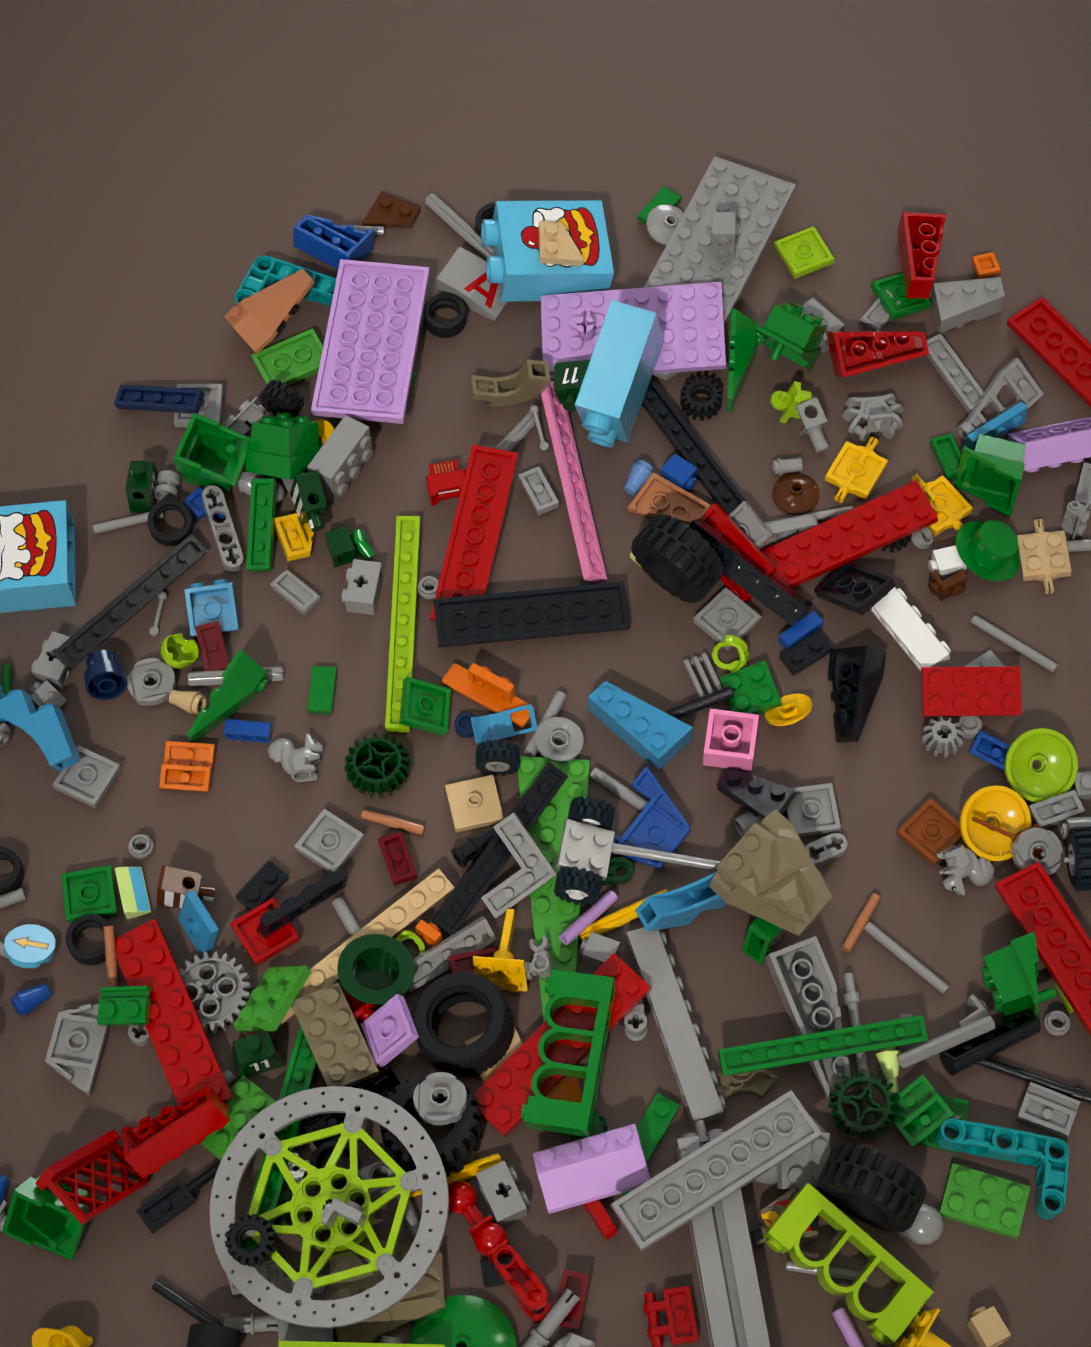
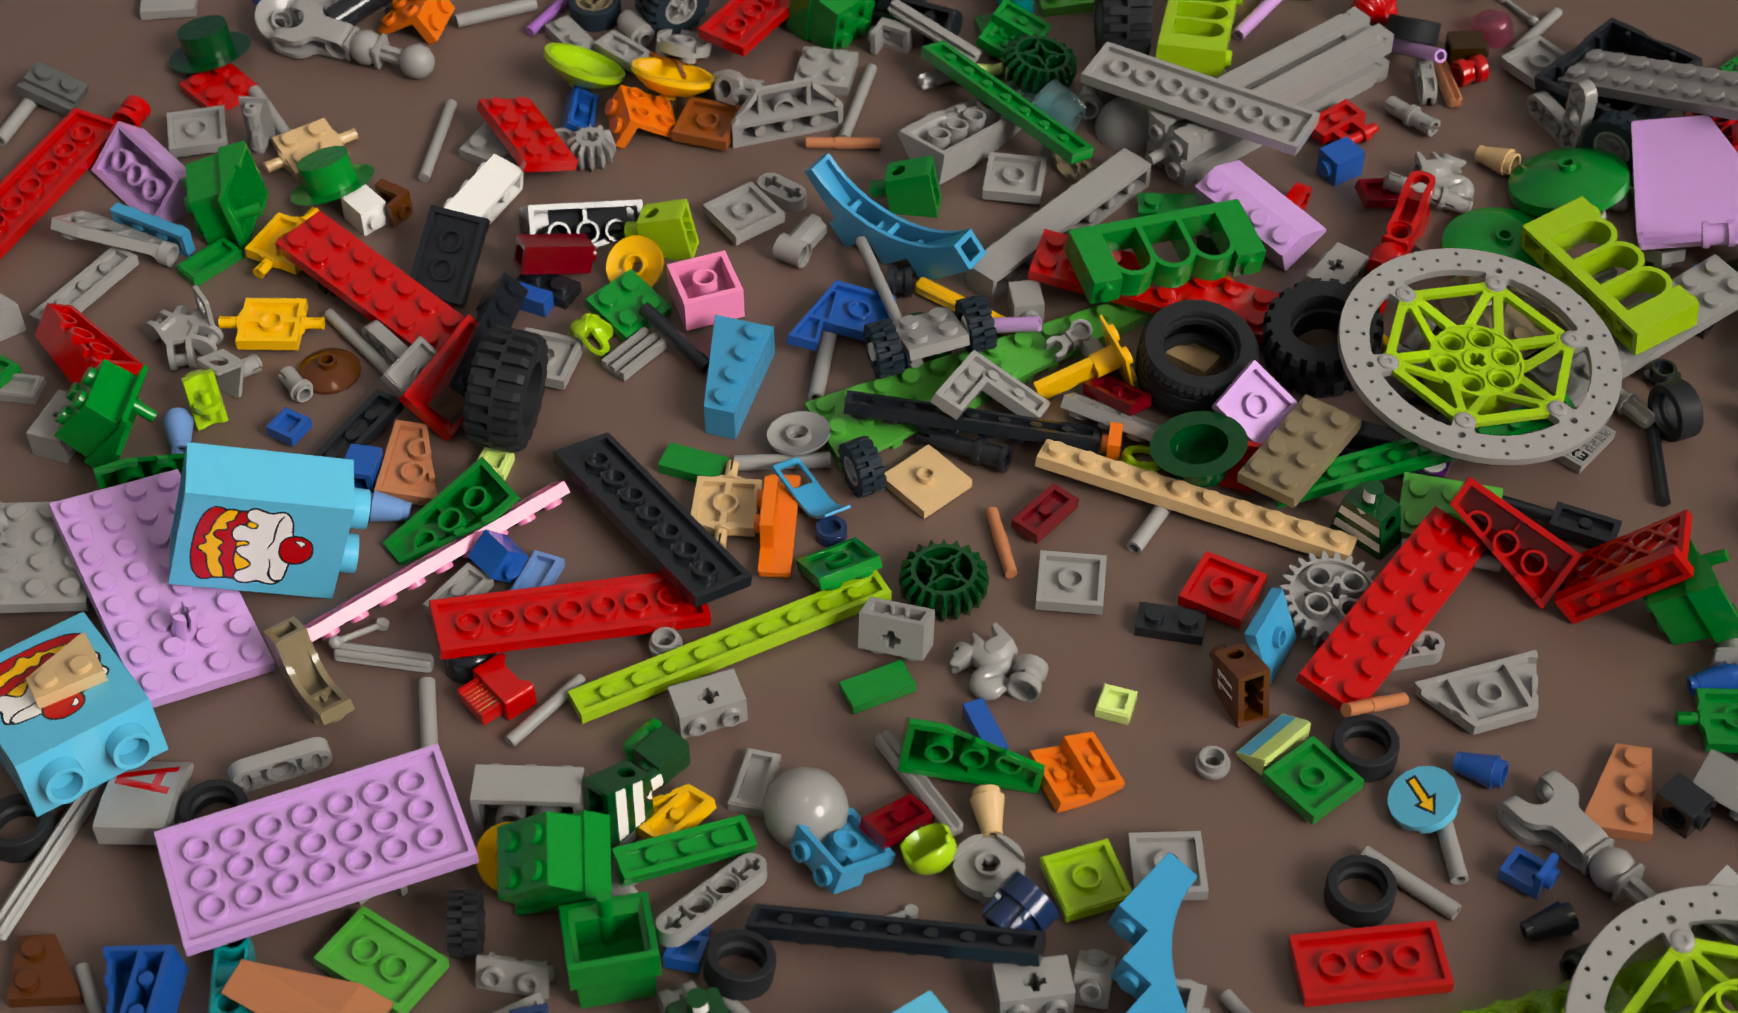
camera: 120 degrees left, 15 degrees down
(108, 728) = (1085, 879): none -> lime plate
(124, 1006) = (1421, 651): green plate -> none
(222, 819) = (1116, 704): none -> yellowish green tile
(252, 603) = (804, 798): none -> light grey piece
(262, 1251) = (1566, 399): black tyre -> none
(268, 772) = (1028, 672): none -> light grey wheel
(272, 999) = (1300, 524): bright green plate -> none
(309, 897) = (1169, 555): black plate -> none
(349, 711) = (896, 629): none -> light grey brick
(349, 1211) = (1478, 335): light grey bracket -> none
(420, 506) = (543, 711): none -> light grey bar
(443, 440) = (427, 712): none -> light grey piece
(445, 1112) = (1305, 326): light grey plate -> none
(460, 356) = (302, 758): none -> light grey beam
(524, 667) = (726, 503): none -> tan plate
(528, 539) = (539, 571): none -> medium blue tile
(550, 519) = (498, 556): none -> blue brick
(568, 381) = (278, 597): dark green torso -> none
(575, 670) = (689, 463): none -> green tile
(602, 513) = (461, 508): none -> green wedge
(627, 1284) = (1340, 161): none -> blue brick
(674, 878) = (900, 280): none -> black wheel
(746, 448) = (289, 426): none -> blue plate
(746, 1020) = (1014, 178): none -> light grey plate
(755, 792) = (757, 247): black wing -> none
(770, 385) = (178, 429): none -> medium blue cone
(773, 876) = (870, 153): dark tan wedge -> none
(804, 1086) = (1061, 104): none -> clear light blue piece
(814, 735) = (669, 227): none -> lime torso
(822, 657) = (554, 253): none -> dark red brick
(910, 888) = (785, 112): none -> light grey wedge
(959, 783) = (637, 109): none -> orange bracket
(959, 953) = (829, 68): none -> light grey plate

